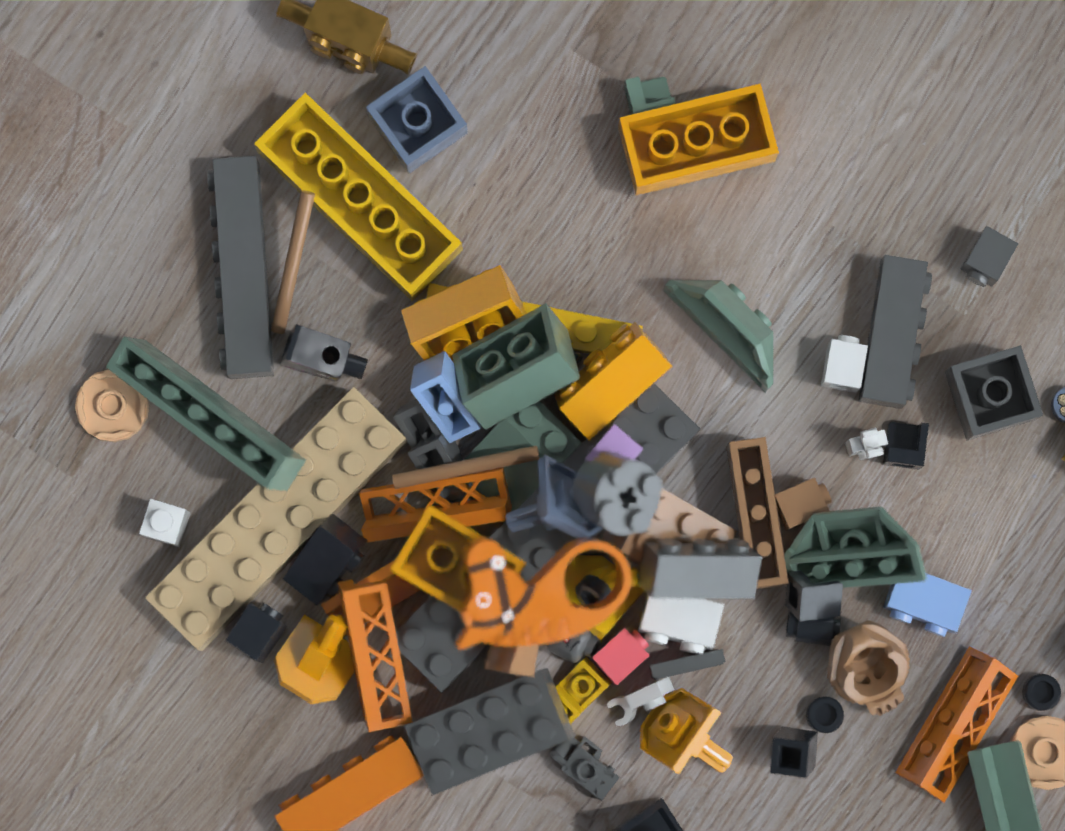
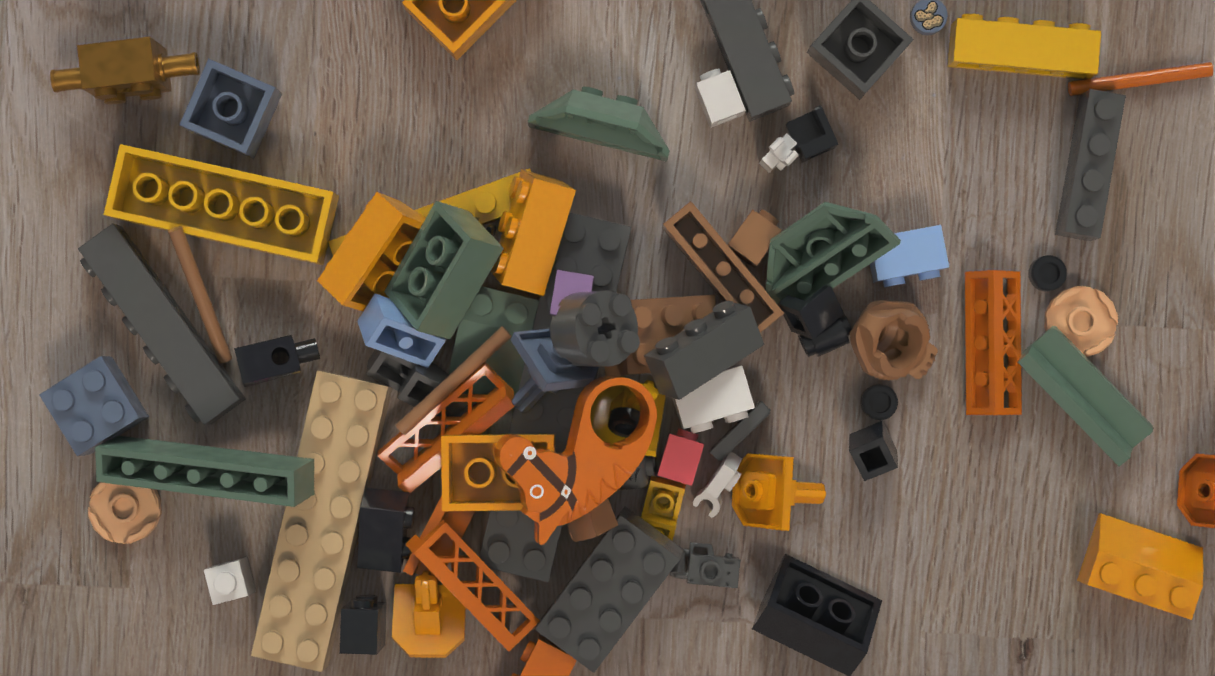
camera: 25 degrees left, 5 degrees up
(142, 301) = (94, 405): none -> sand blue brick

